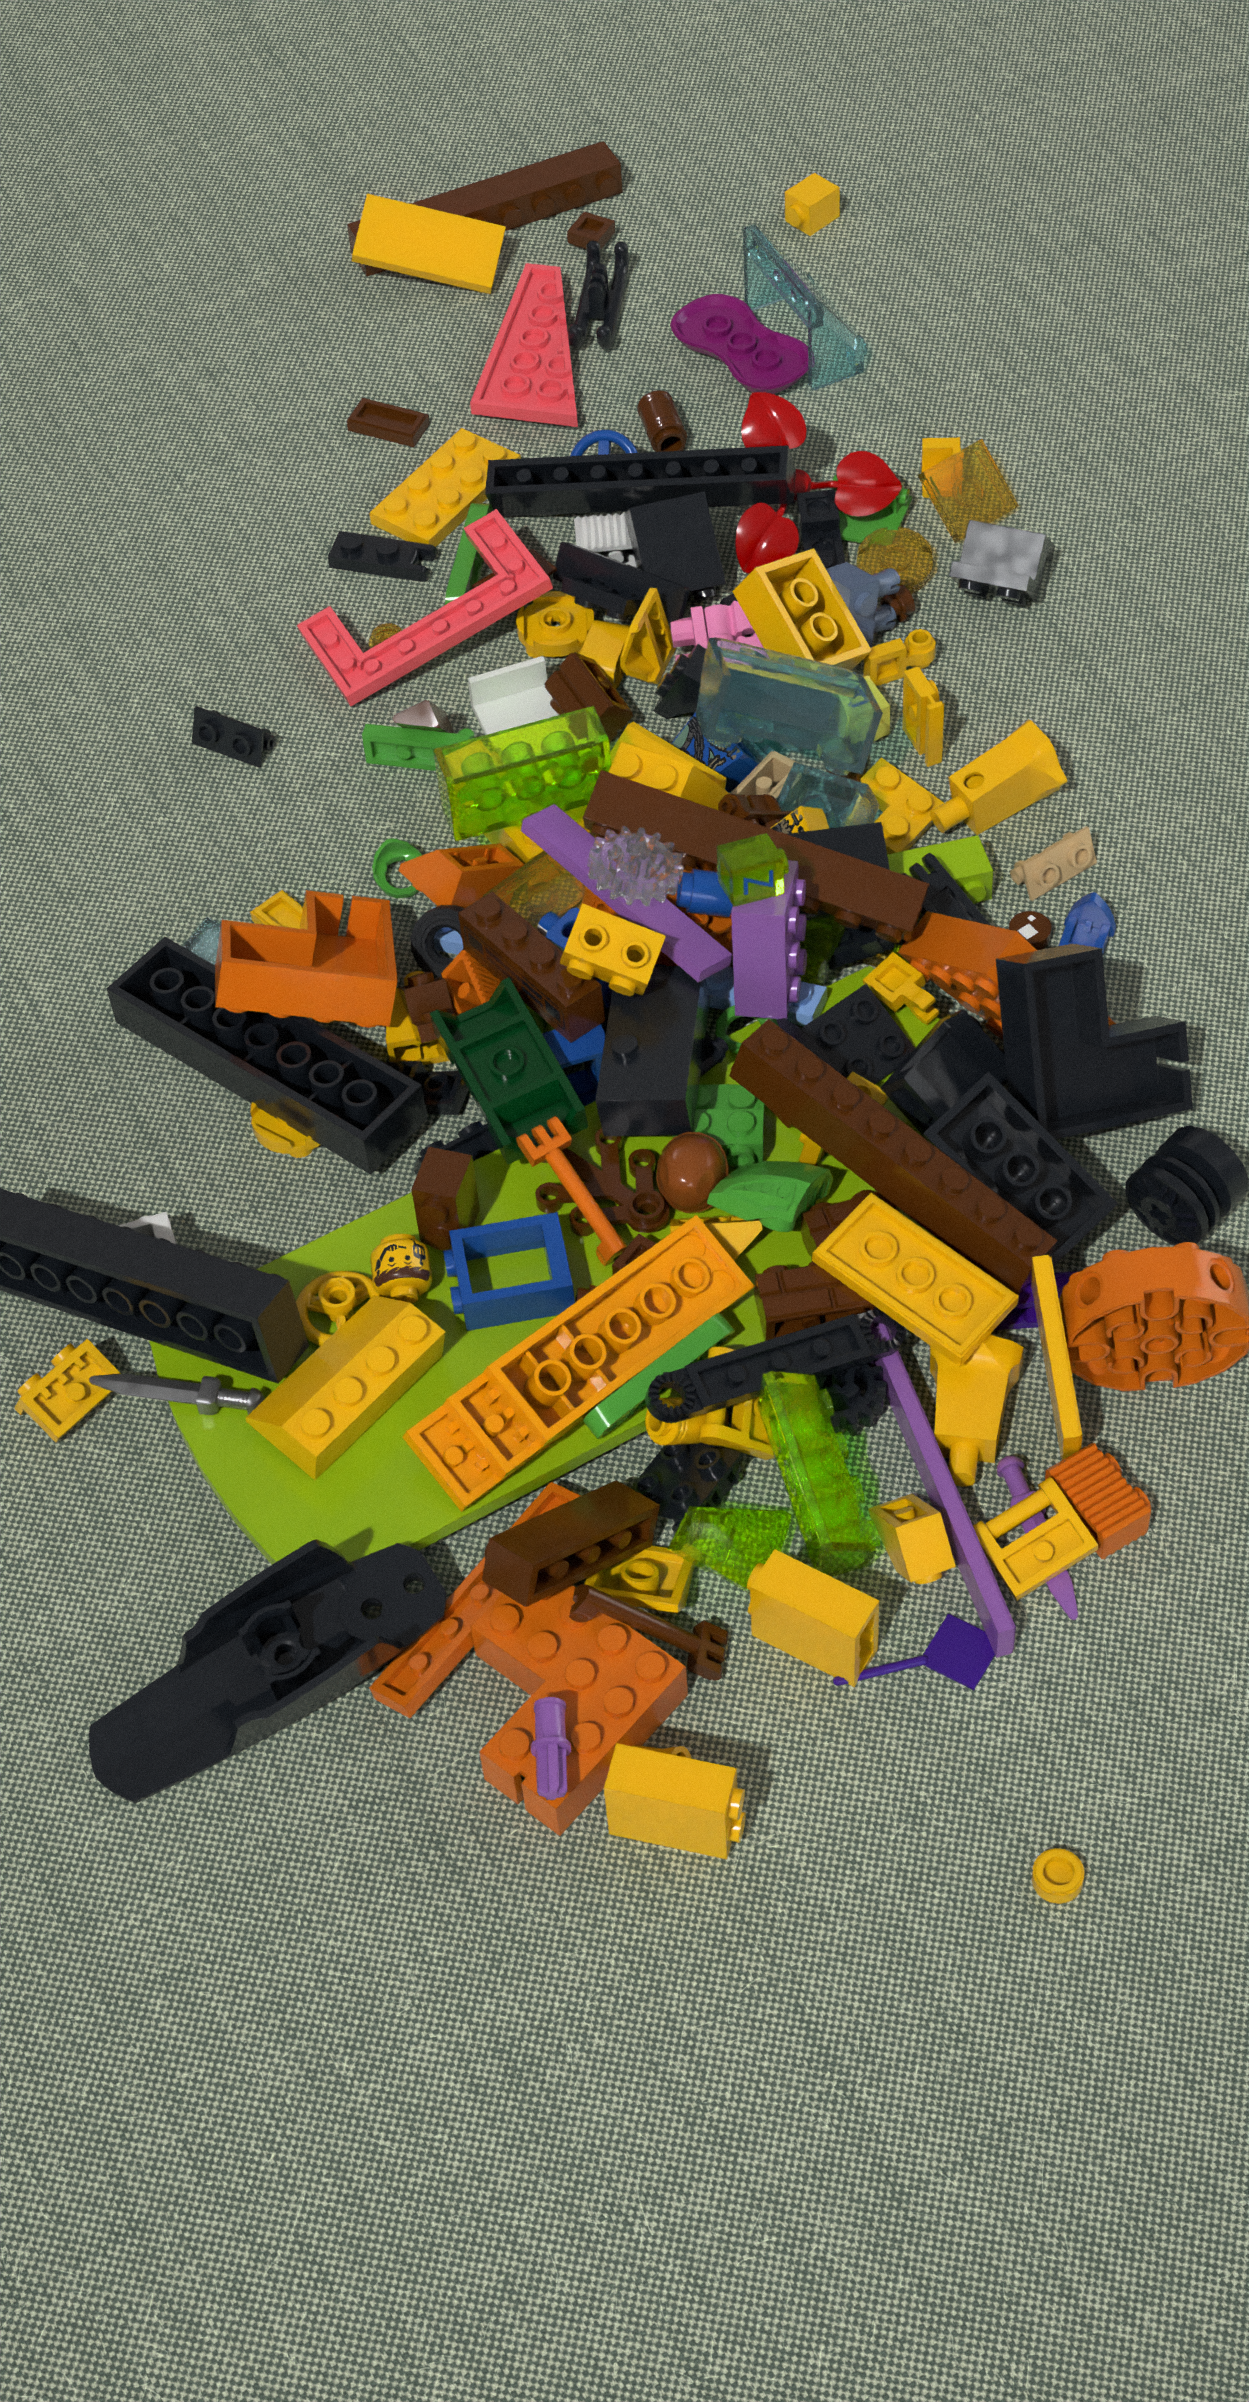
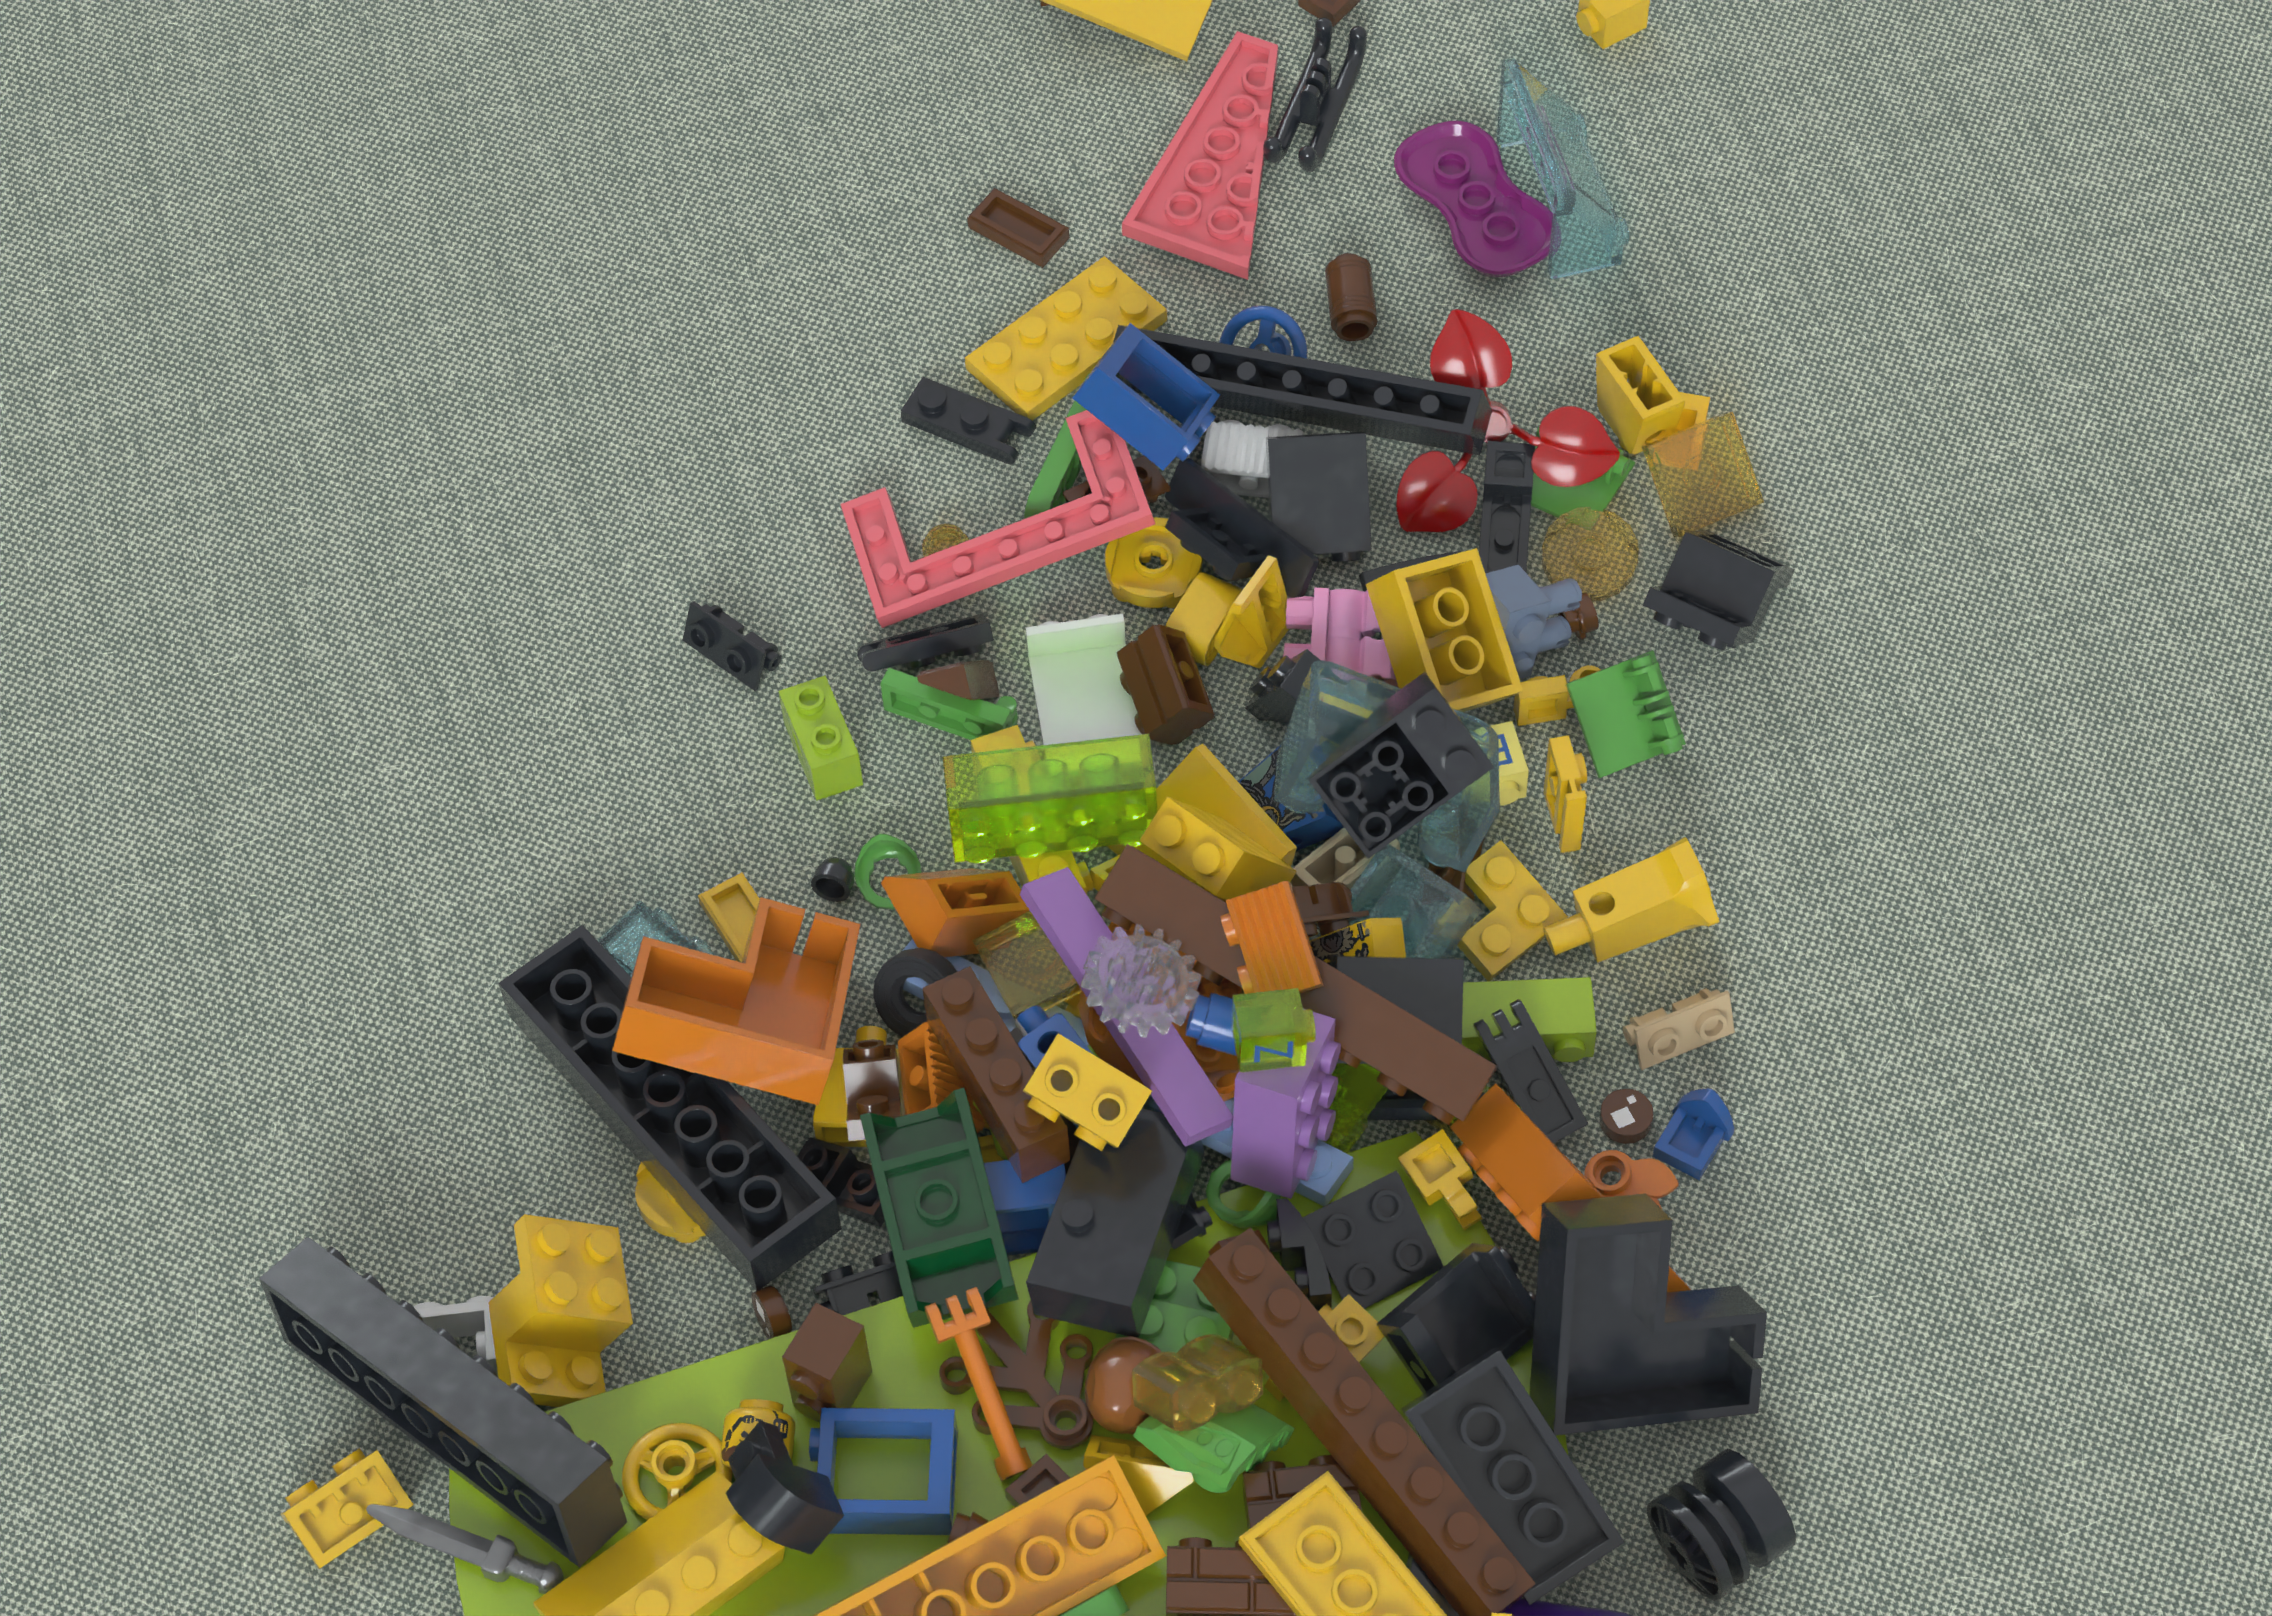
camera: 10 degrees right, 5 degrees up
(217, 1199) = (560, 1309): none -> yellow bracket
(322, 784) = (821, 737): none -> lime brick
(360, 881) = (833, 879): none -> black hinge
(383, 711) = (922, 645): none -> black hinge
(384, 1185) = (771, 1312): none -> reddish brown tile
(434, 1290) = (779, 1498): none -> black brick
(526, 500) = (1162, 381): none -> blue window
(730, 809) = (1271, 941): none -> orange brick
(750, 1149) = (1197, 1382): none -> clear yellow brick
(797, 697) = (1399, 766): none -> black slope
(905, 439) = (1642, 407): none -> yellow torso
(955, 657) = (1626, 714): none -> bright green hinge

